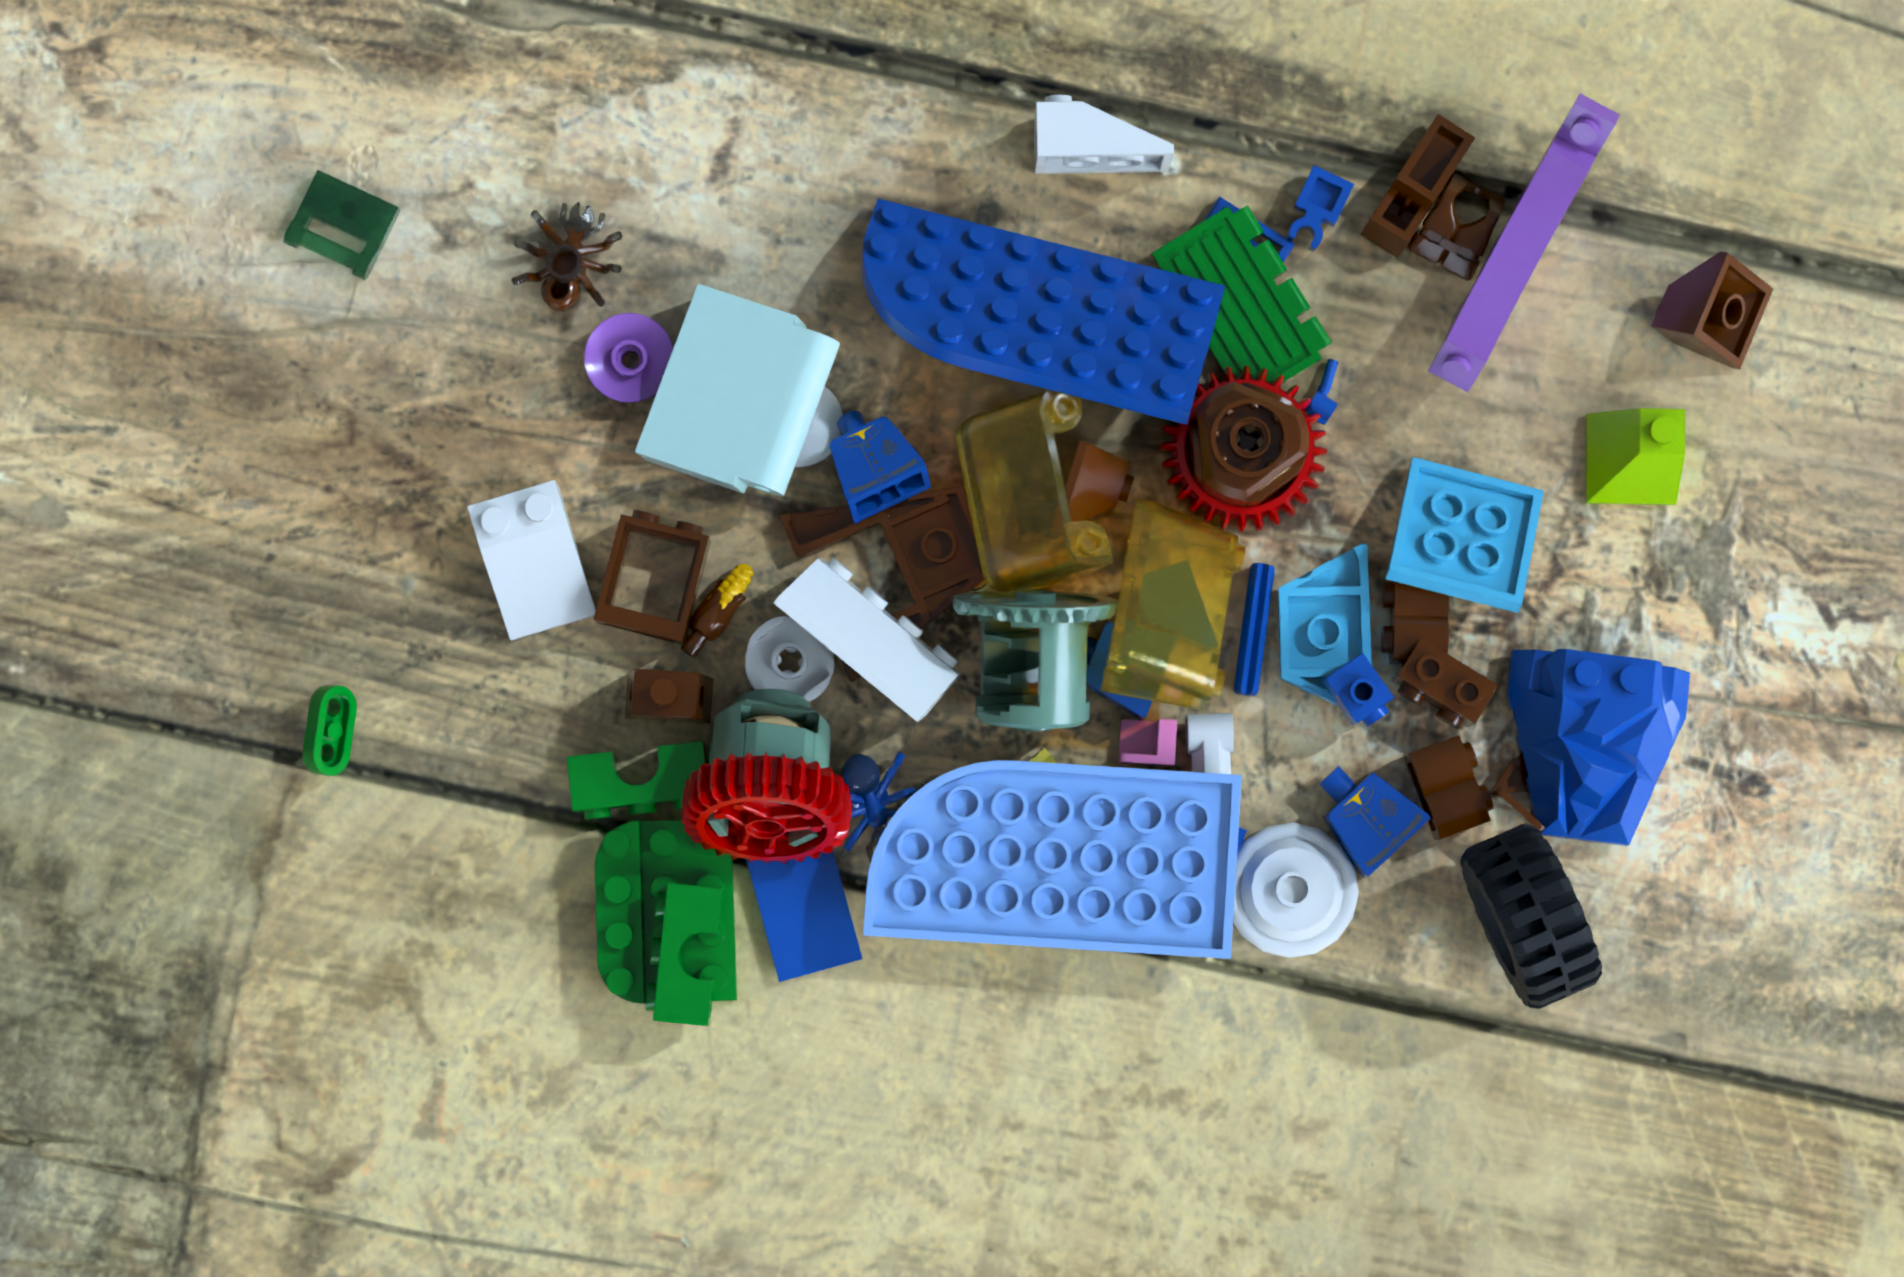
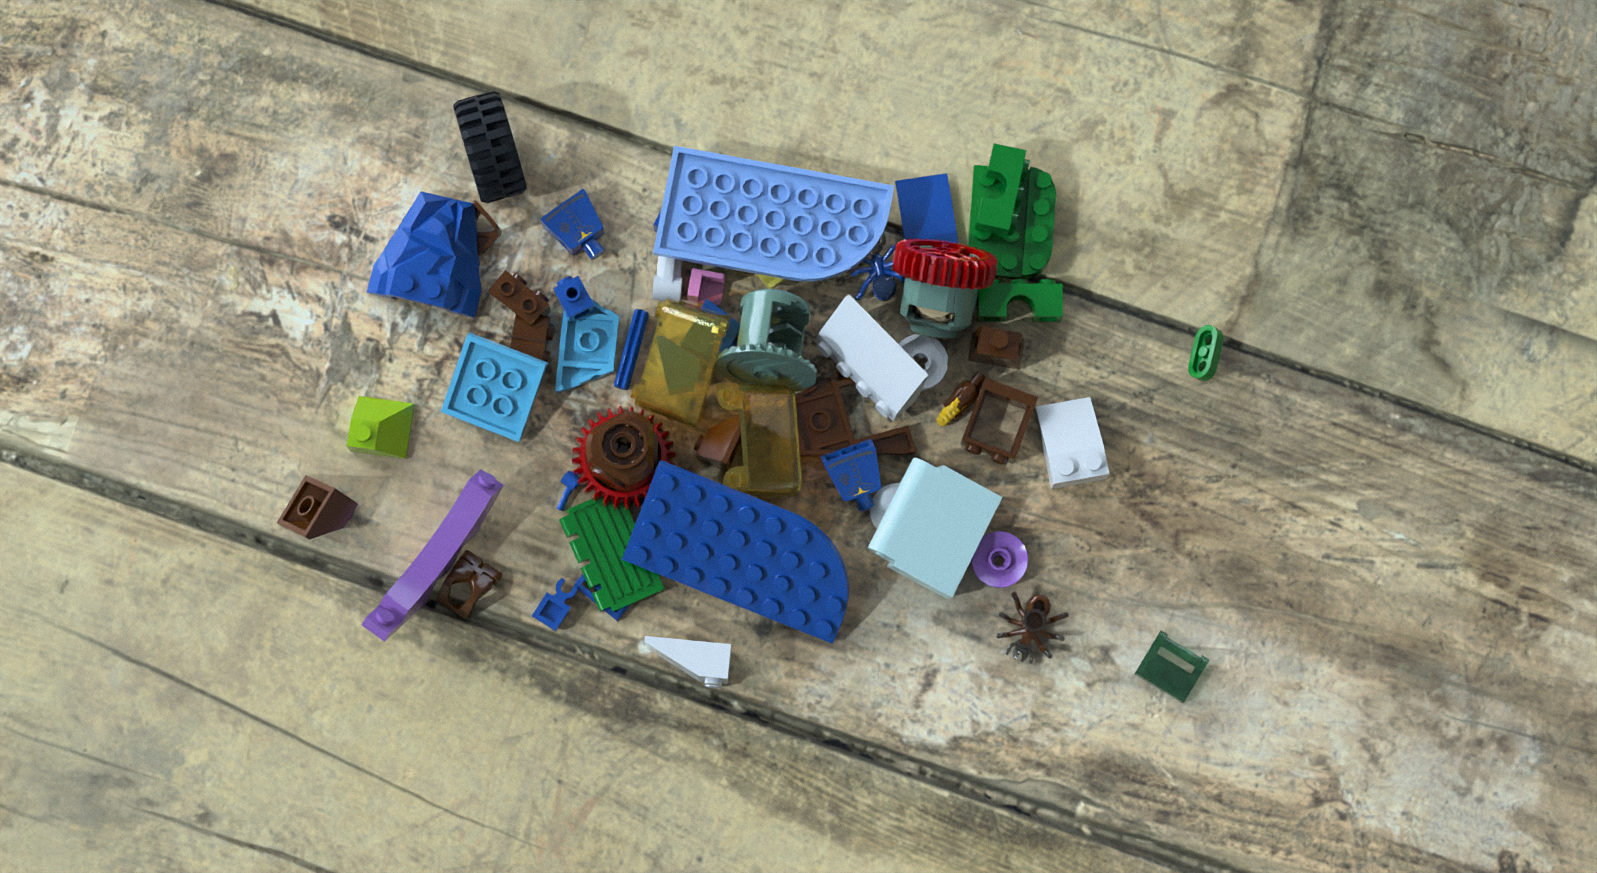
camera: 170 degrees left, 5 degrees down
(1293, 890) = (628, 191): white piece -> none
(1417, 186) = (490, 611): reddish brown slope -> none
(1448, 787) = (526, 239): reddish brown brick -> none

